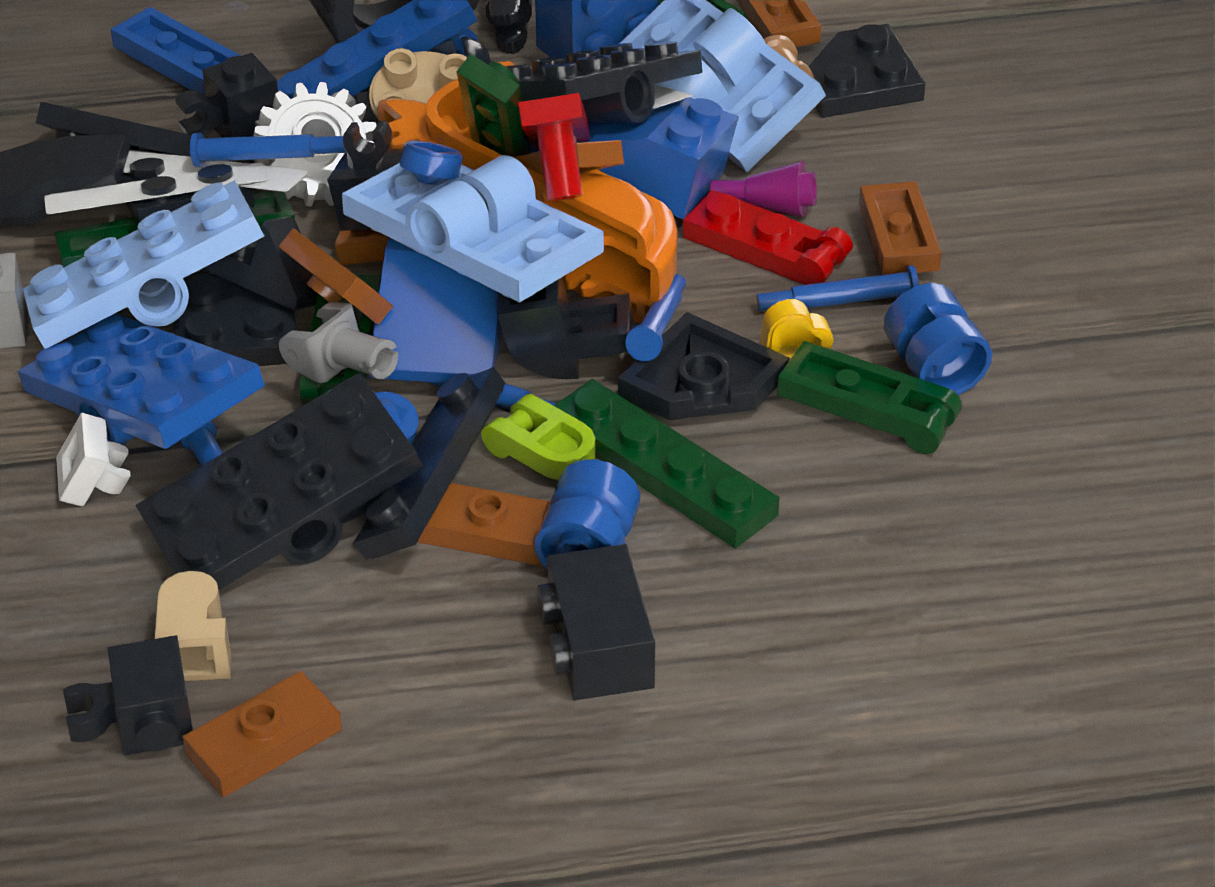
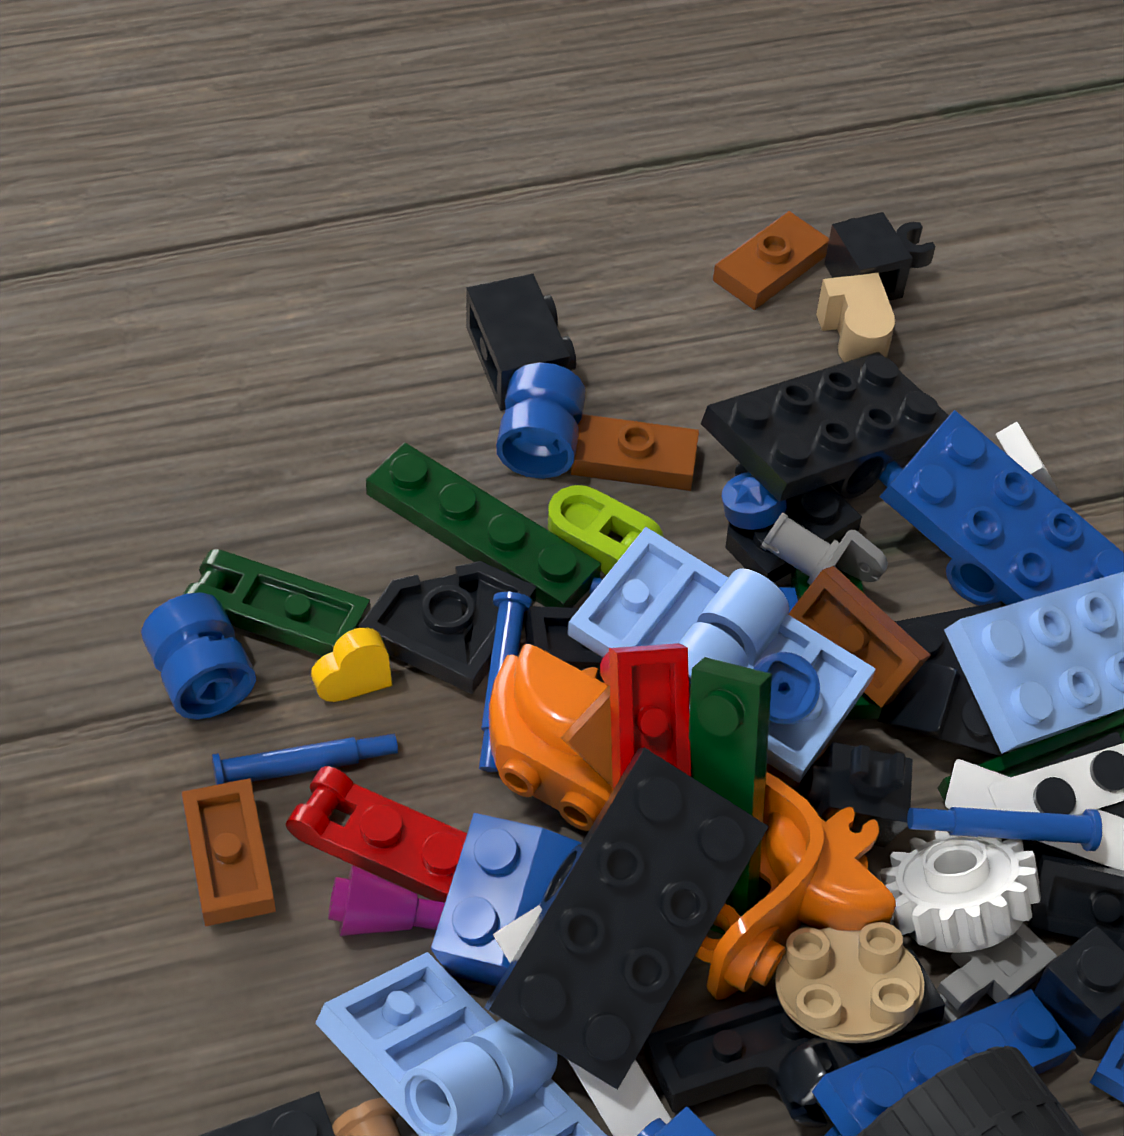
camera: 170 degrees right, 10 degrees up
(442, 444) = (701, 468): black plate -> none

